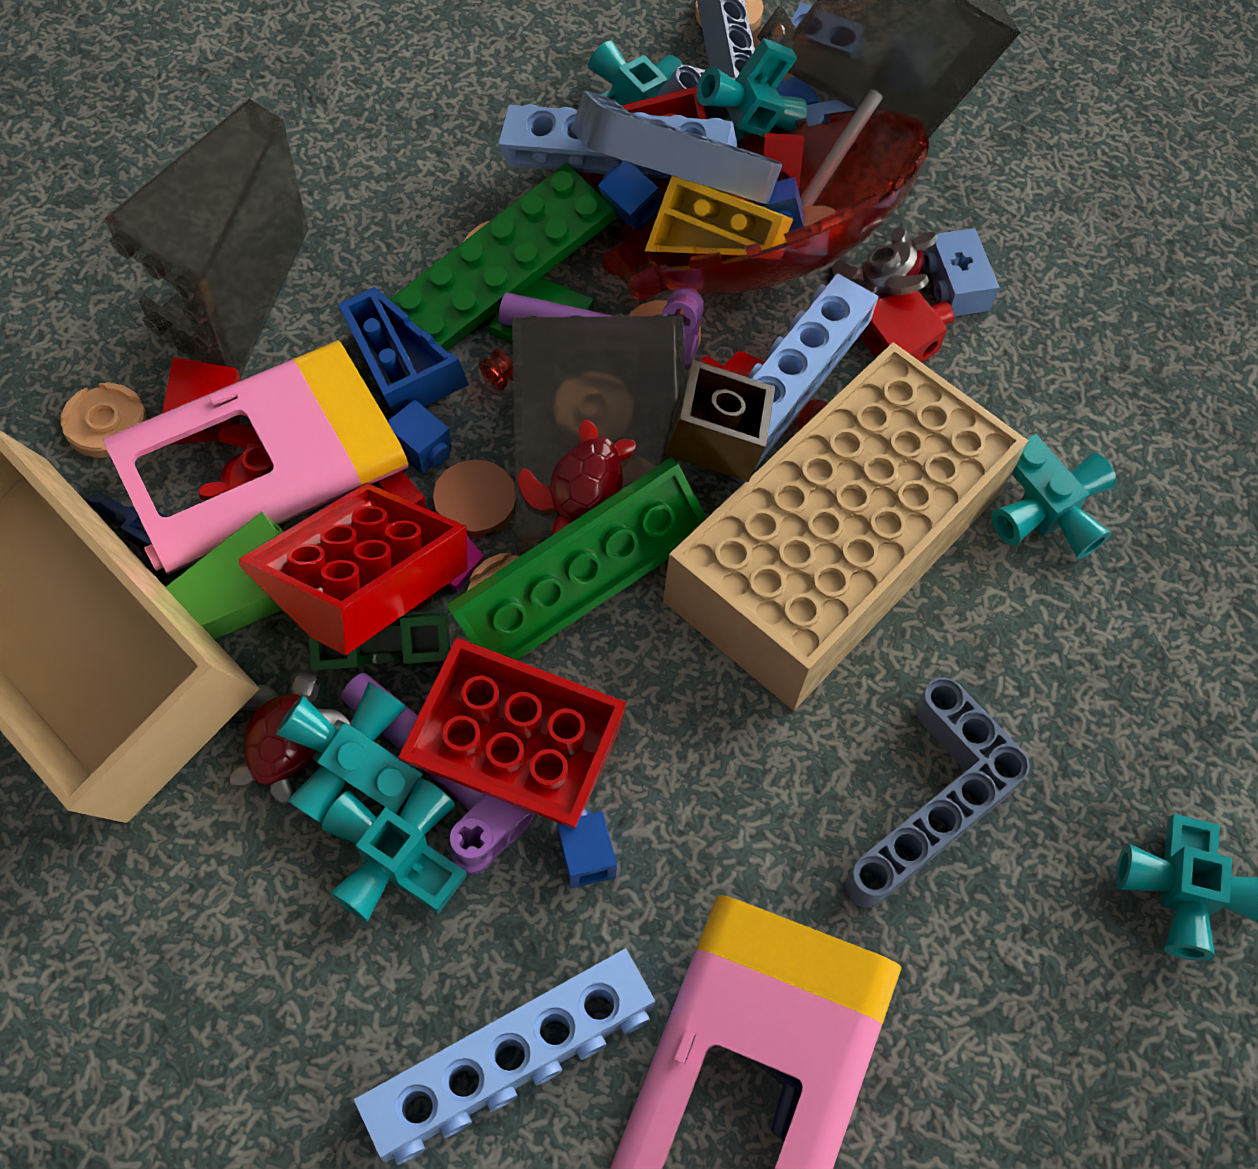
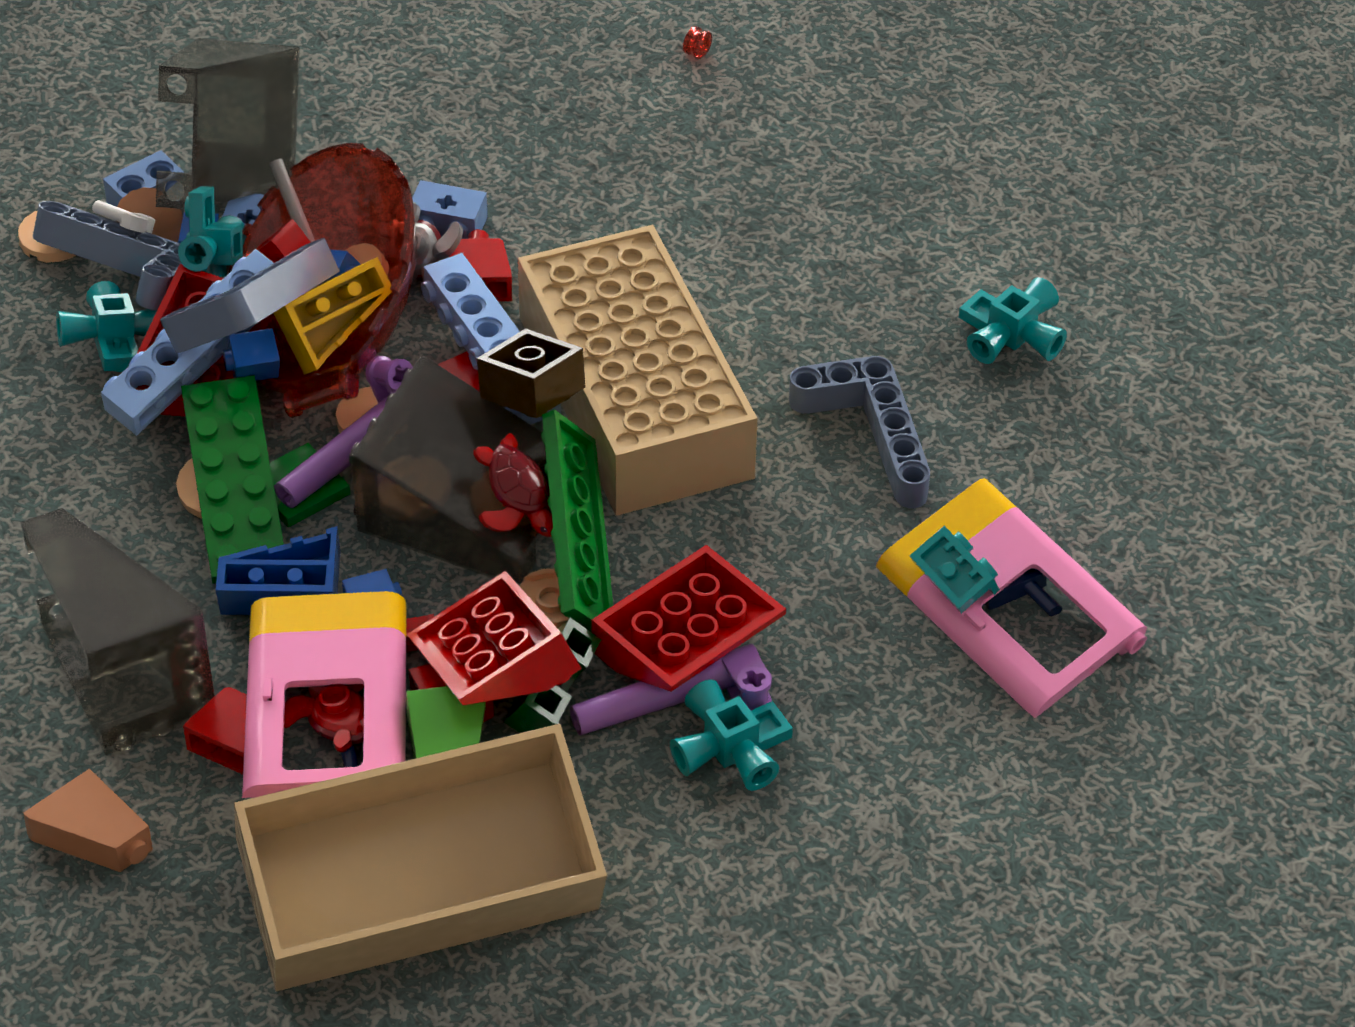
camera: 60 degrees left, 15 degrees down
(46, 346) = (90, 824): none -> nougat slope
(108, 408) = (188, 822): light nougat tile -> none
(271, 757) = (603, 773): dark red animal -> none
(349, 754) = (641, 728): teal brick -> none
(385, 1105) = (922, 729): light blue brick -> none
(476, 496) = (443, 584): nougat tile -> none
(497, 369) = (343, 521): clear red bush -> none
(587, 850) = (798, 629): blue brick -> none
(729, 993) = (954, 569): none -> teal bracket
(749, 37) = (133, 221): none -> white bar
(1055, 499) = (691, 251): teal brick -> none

